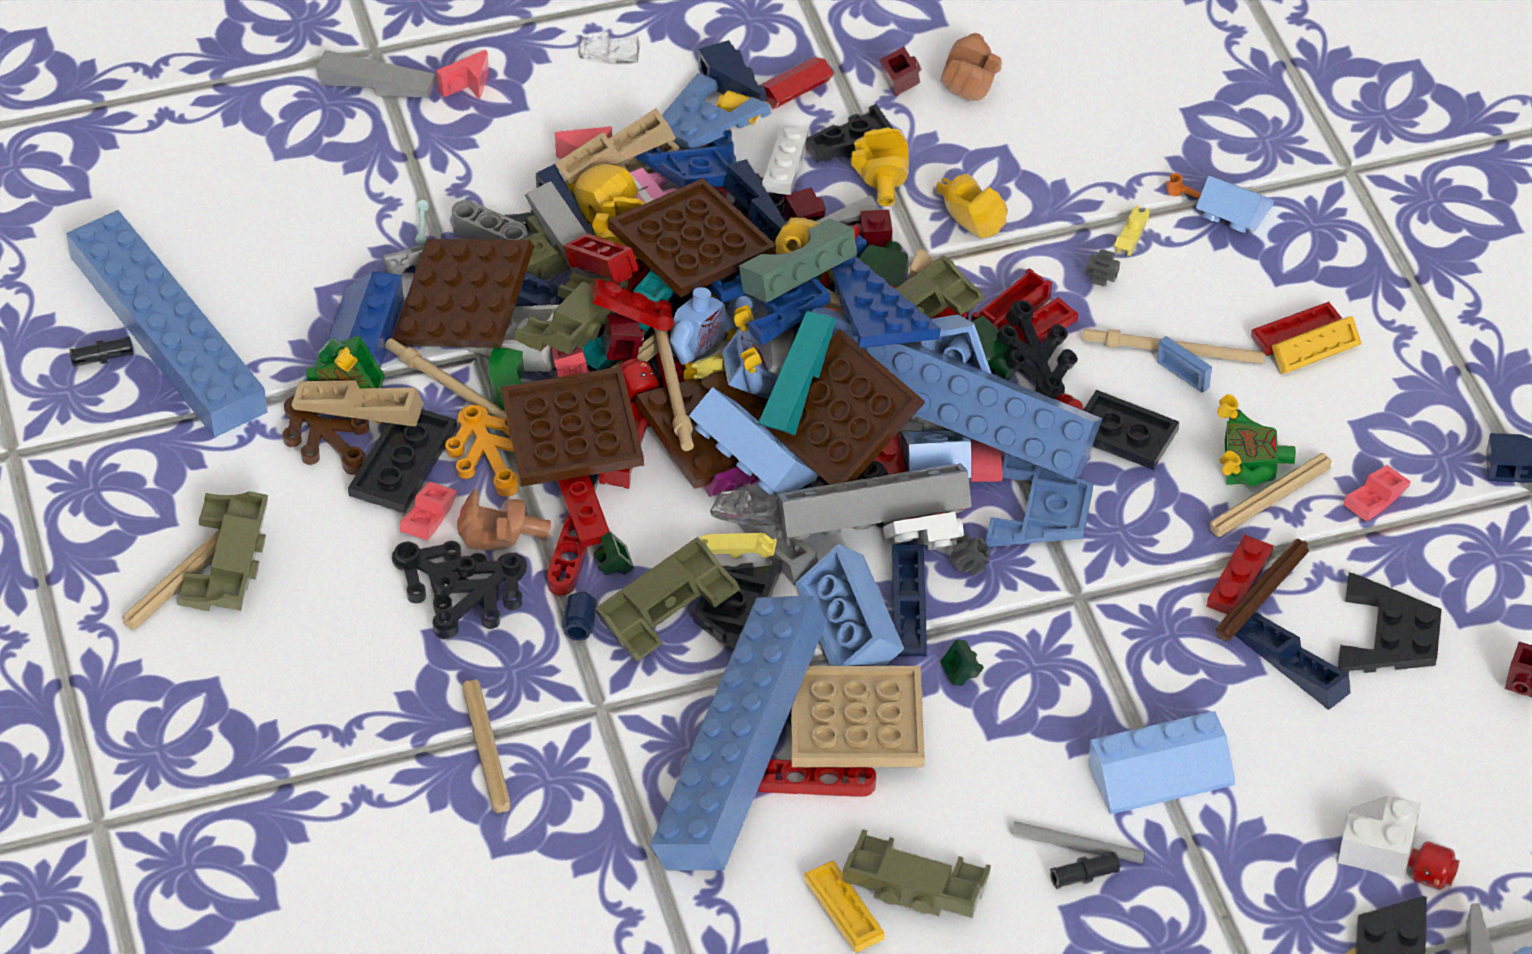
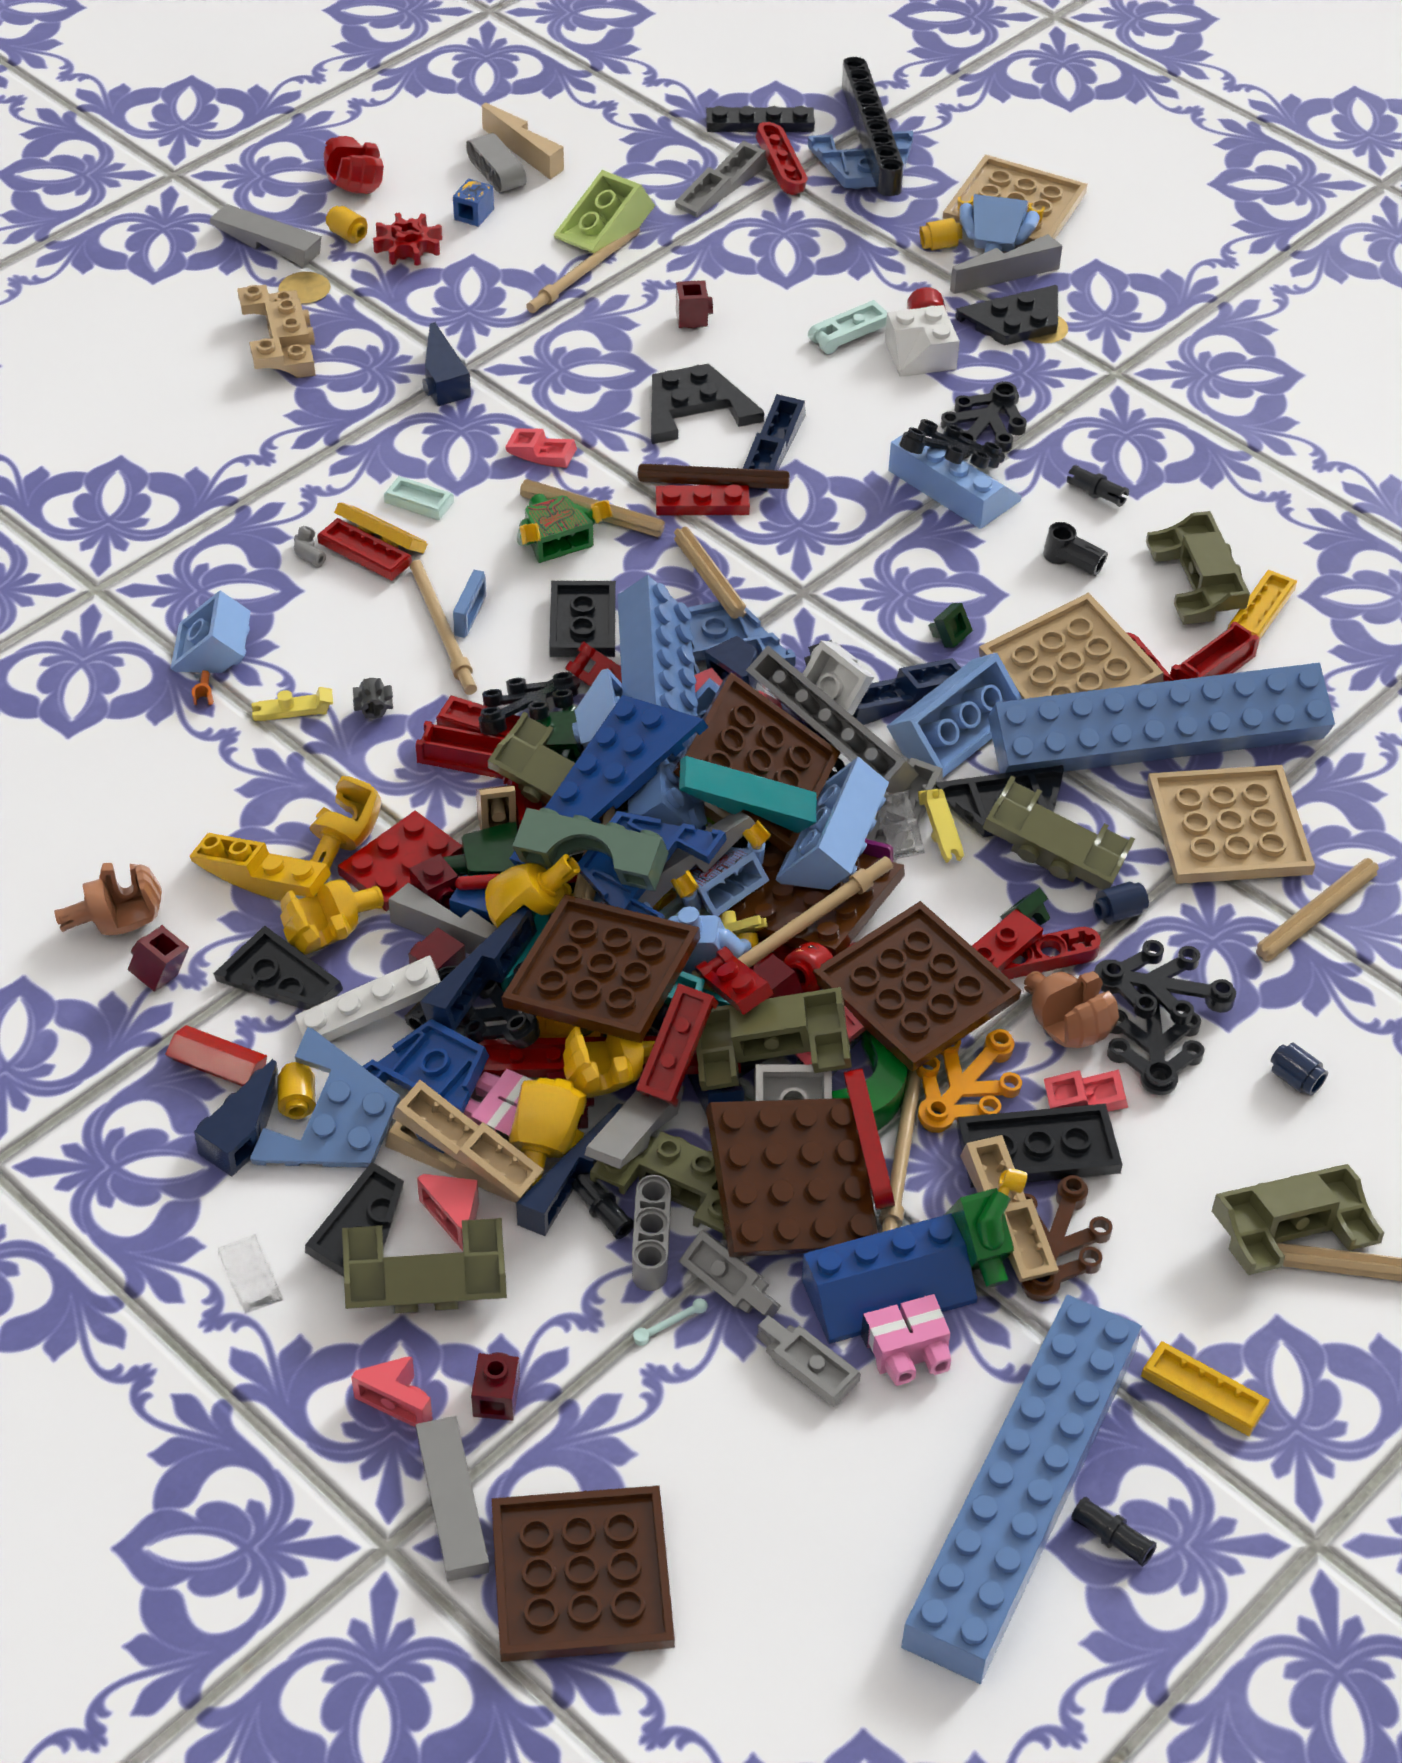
camera: 120 degrees left, 0 degrees up
(153, 446) = (1205, 1388): none -> yellow plate
(282, 112) = (581, 1573): none -> reddish brown plate
(311, 315) = (907, 1338): none -> bright pink hips
(337, 265) = (808, 1360): none -> light grey hinge
(348, 636) = (1298, 1068): none -> dark blue brick
(427, 346) = (869, 1139): none -> red beam
(434, 119) = (495, 1386): none -> dark red brick
(530, 114) = (423, 1279): none -> olive bracket
(601, 101) = (366, 1204): none -> black wing
(610, 734) = (1230, 824): none -> tan plate
(797, 827) = (1220, 656): none -> red container
(925, 227) = (390, 855): none -> red plate
(964, 153) = (256, 870): none -> yellow slope
(996, 491) = (732, 656): none -> dark blue slope
(1003, 799) = (1064, 547): none -> black piece
(1077, 842) = (1068, 501): light grey bar -> none
(1126, 524) = (710, 573): none -> tan axle
(1177, 758) = (951, 440): none -> black plant
(1236, 838) = (1002, 396): none -> black plant
(1322, 296) = (305, 548): none -> light grey arm
(1353, 390) = (418, 498): none -> light aqua tile
(1442, 796) = (848, 326): none -> light aqua plate

